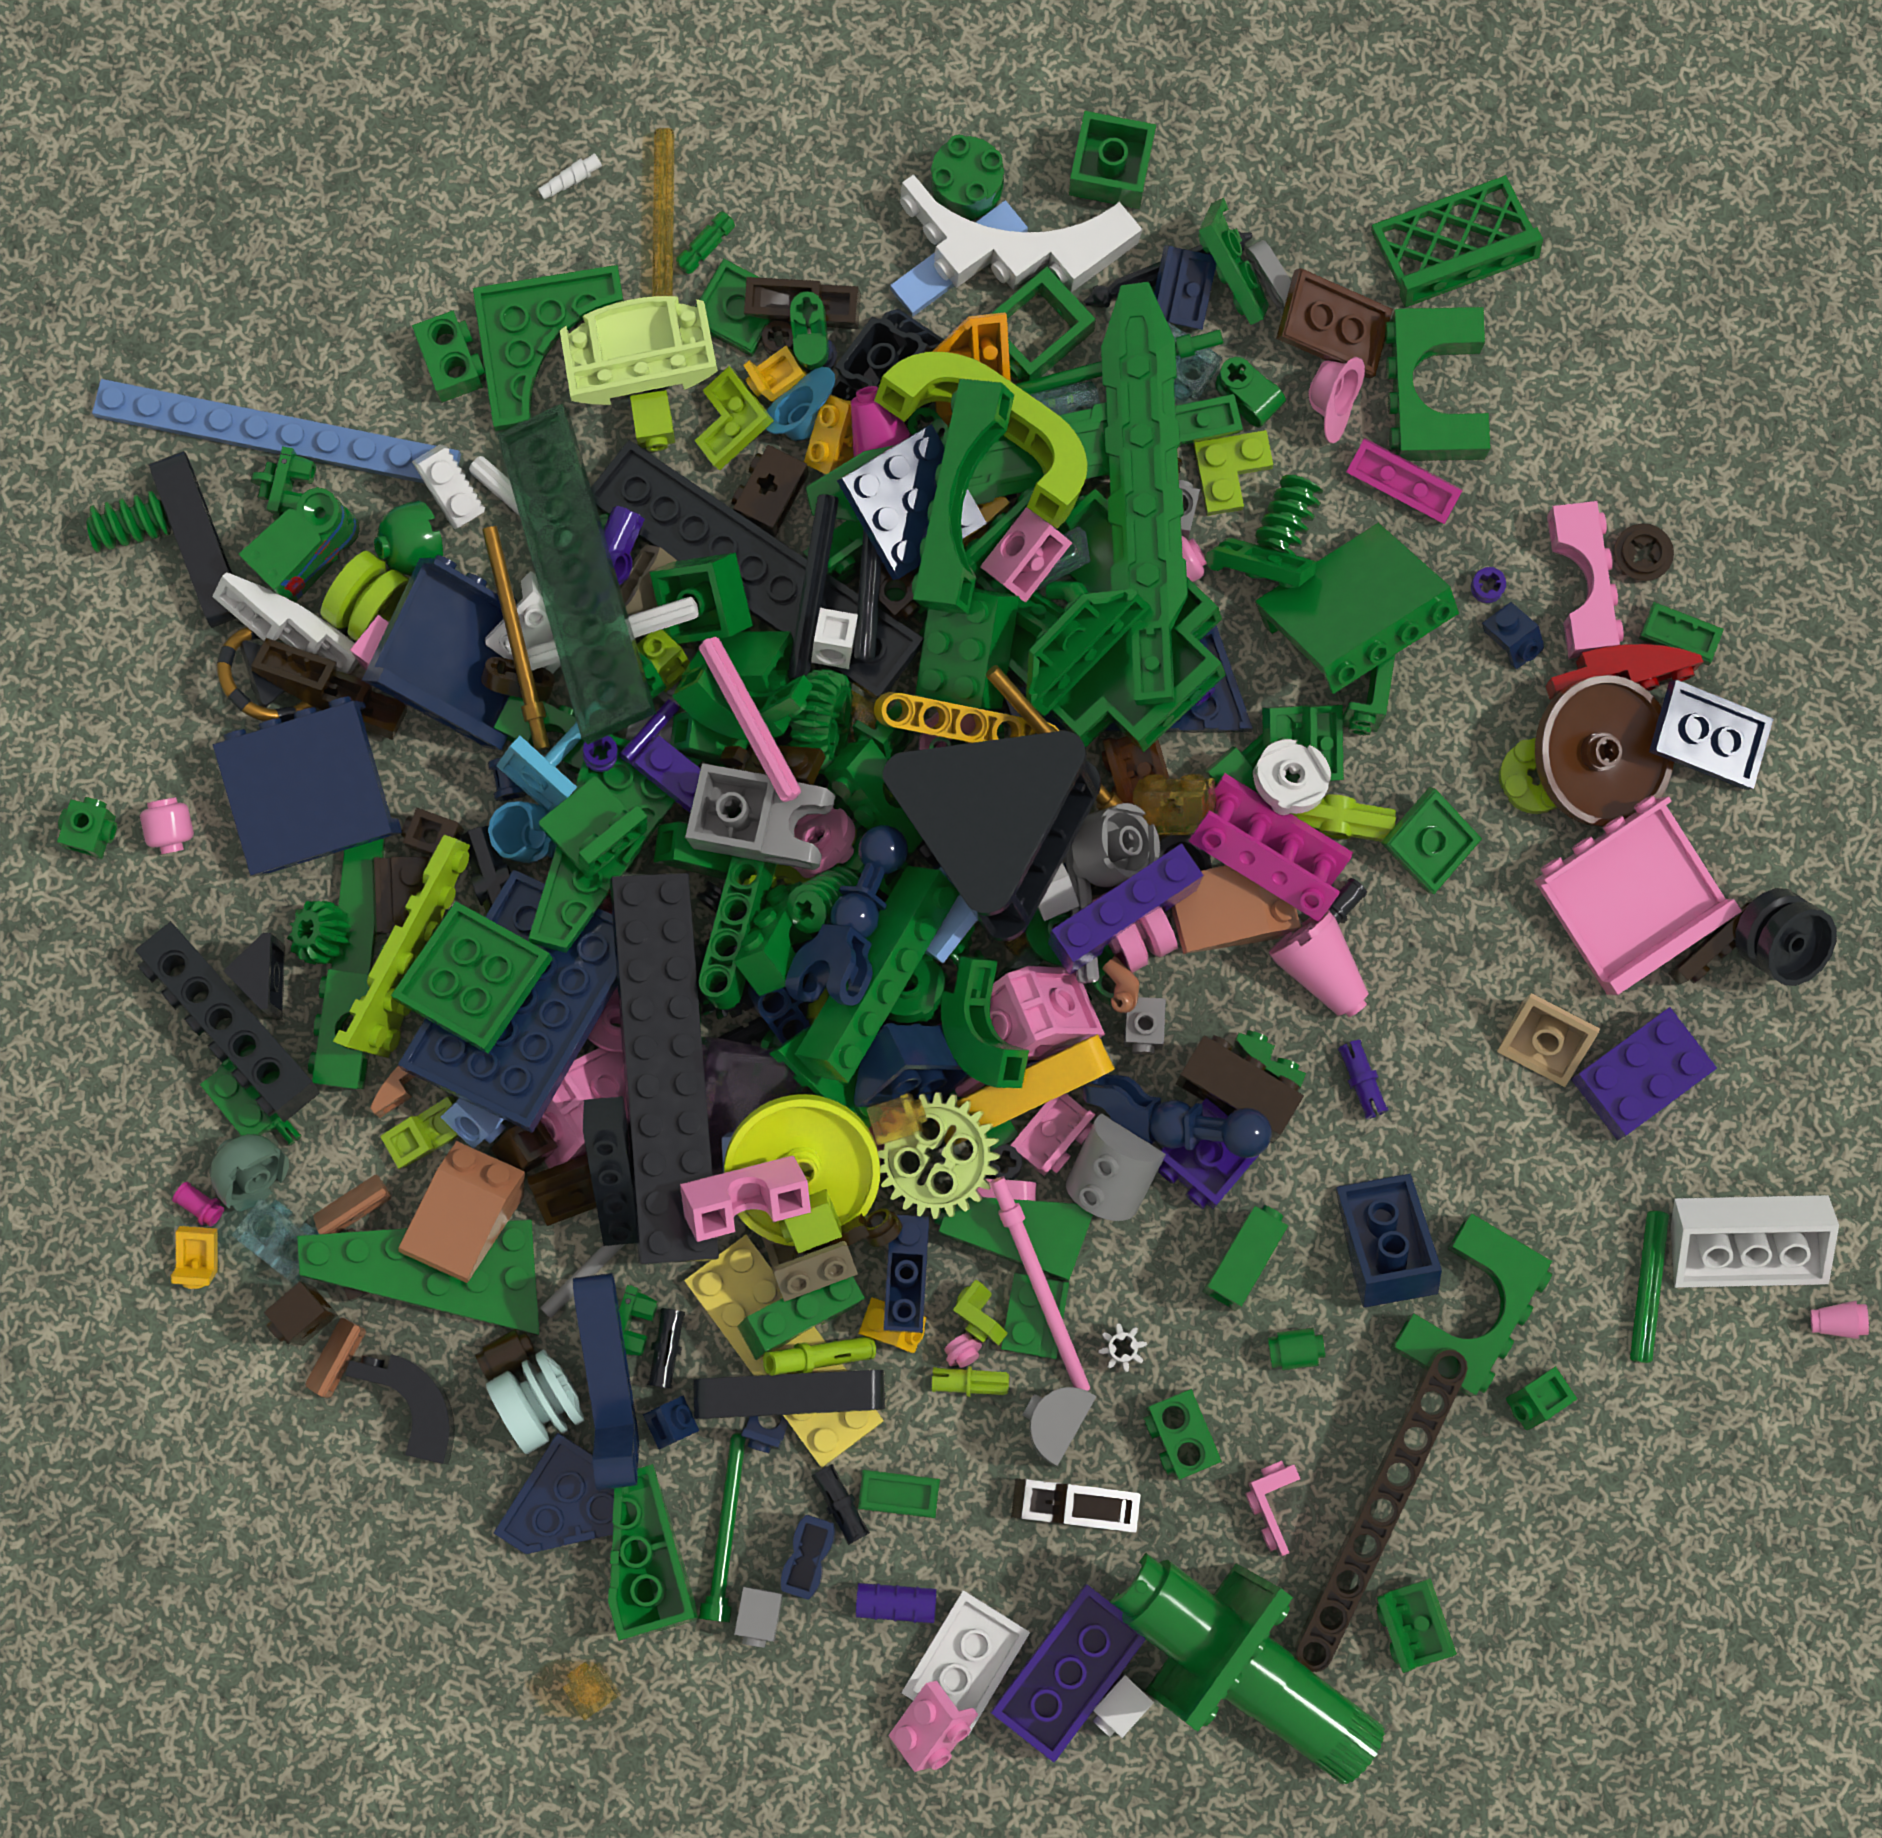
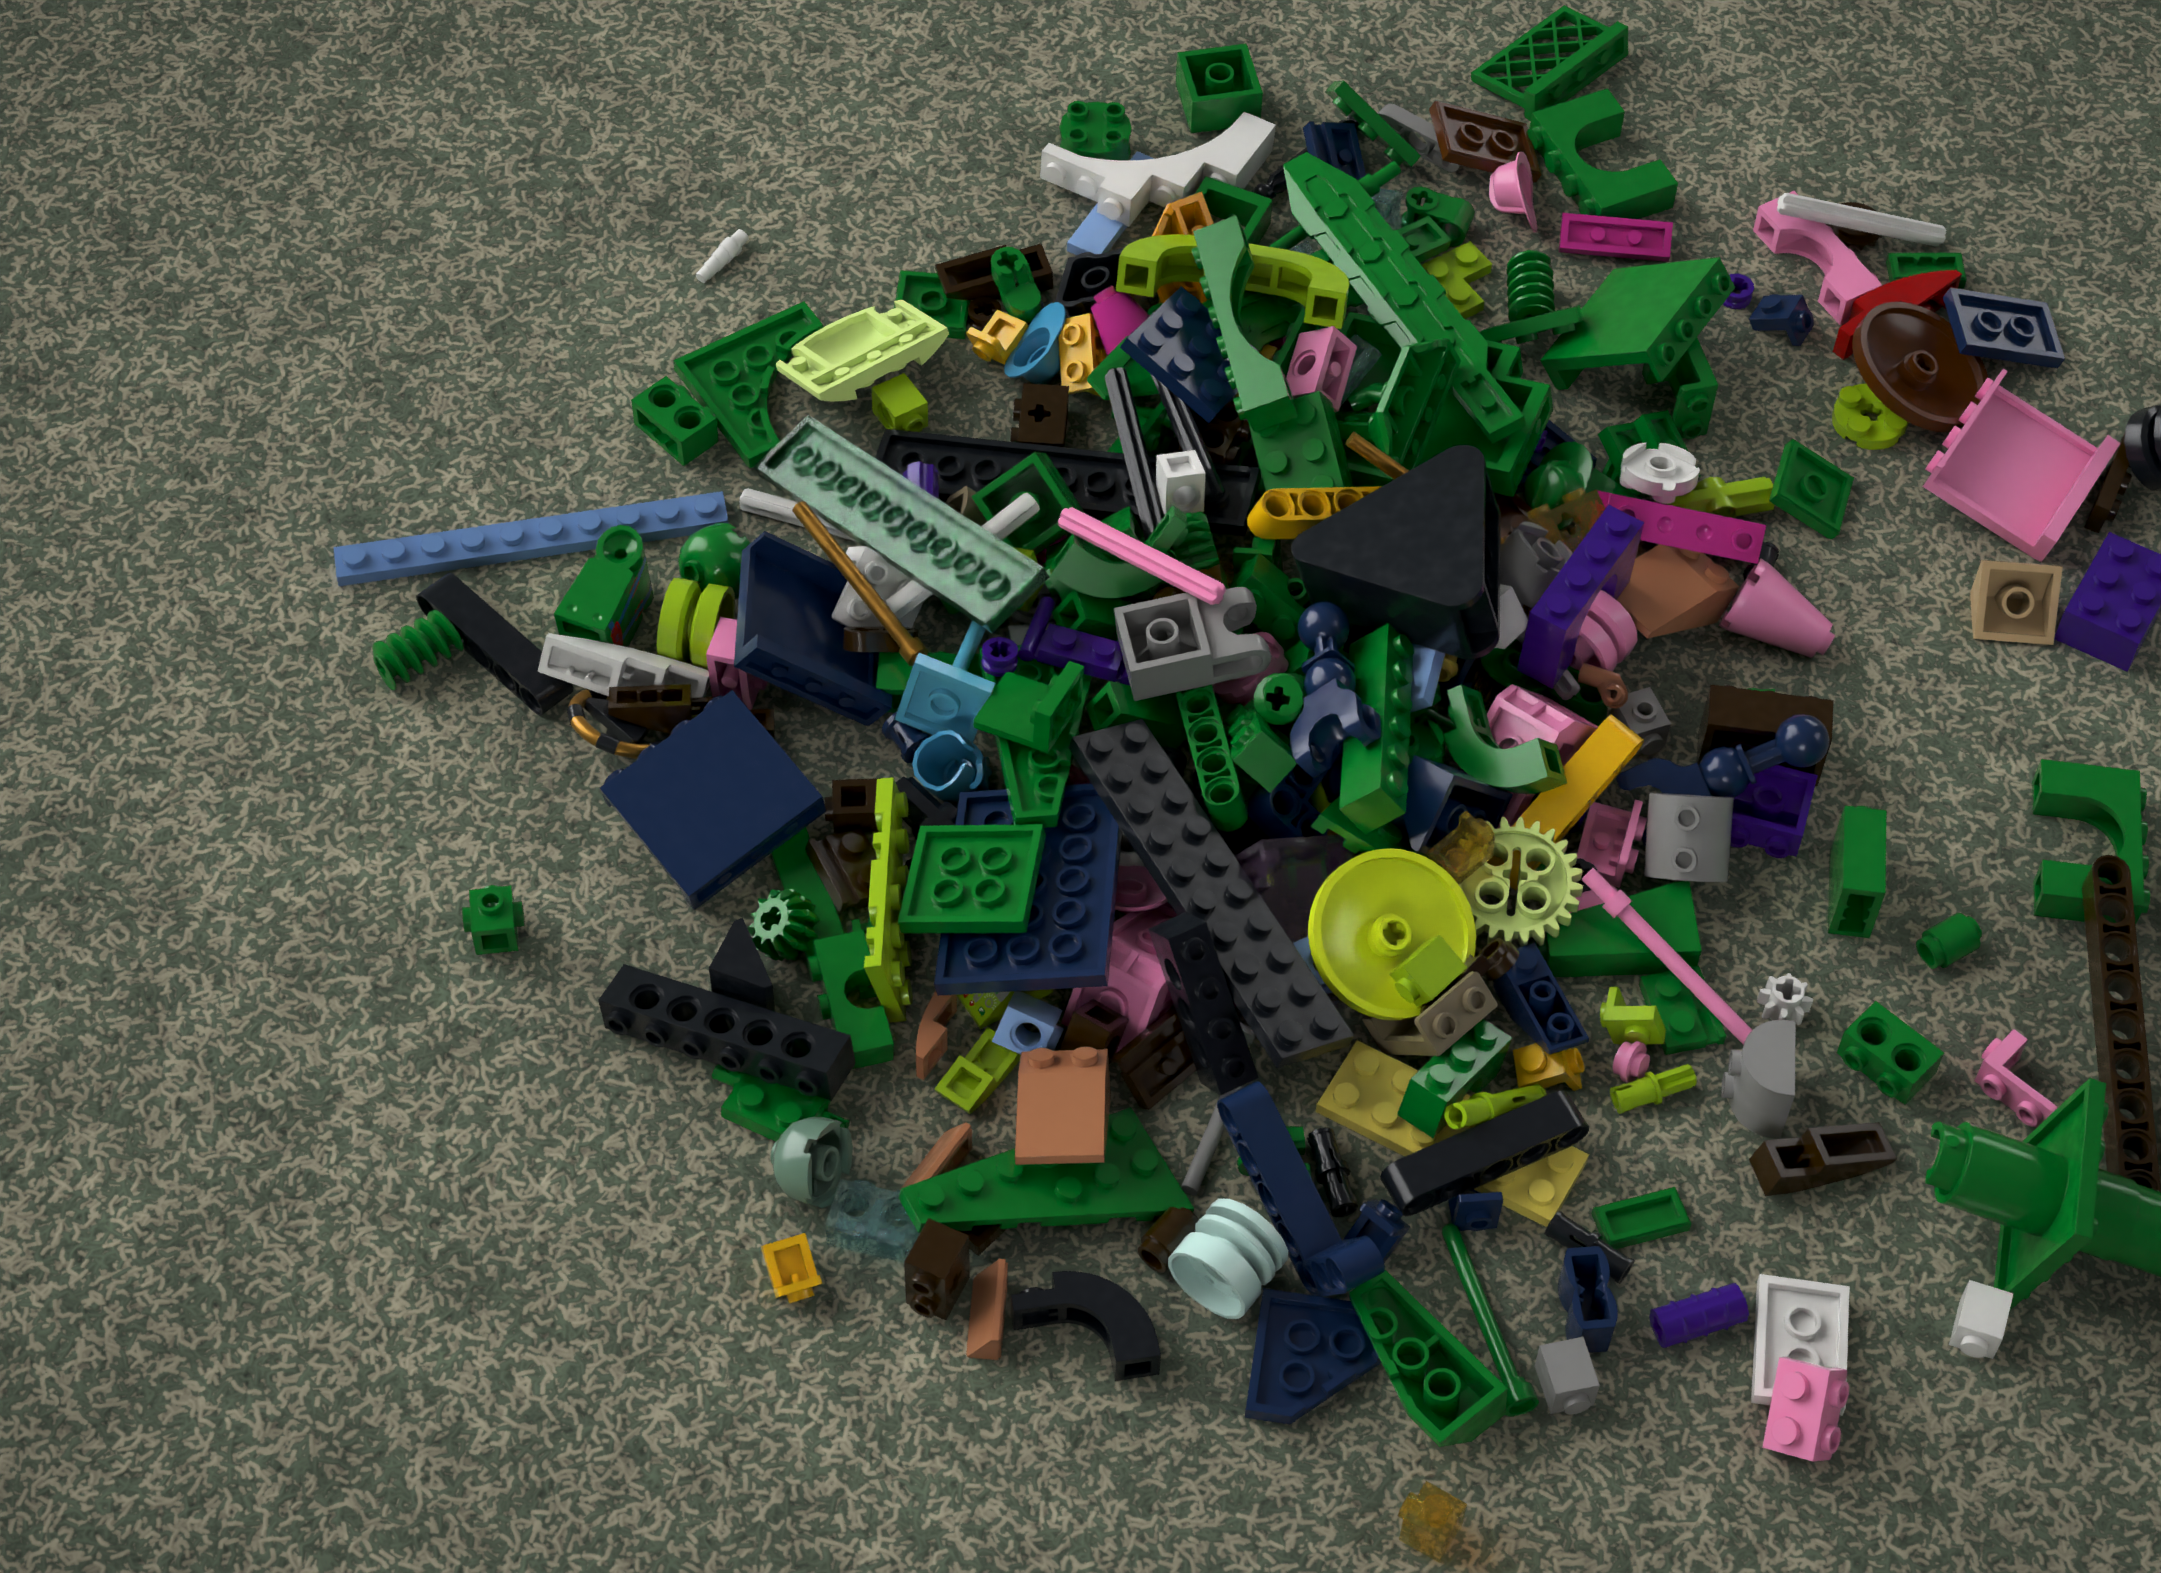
camera: 25 degrees left, 25 degrees down
(166, 825) = (576, 890): bright pink head -> none
(204, 1208) = (770, 1221): dark pink pin -> none
(289, 469) = (565, 554): green hips -> none
(448, 486) = (726, 501): white brick -> none
(663, 212) = (823, 253): clear yellow axle -> none
(705, 242) = (876, 265): green axle -> none
(739, 422) = (982, 382): lime plate -> none
(772, 1187) = (1339, 962): bright pink arch -> none
(1068, 1673) = (1912, 1304): dark purple brick -> none
(1198, 746) = (1559, 473): none -> green piece
(1363, 1079) = (1869, 698): dark purple pin -> none
(1388, 1241) = (1980, 819): dark blue slope -> none
(1643, 560) = (1861, 219): none -> white axle

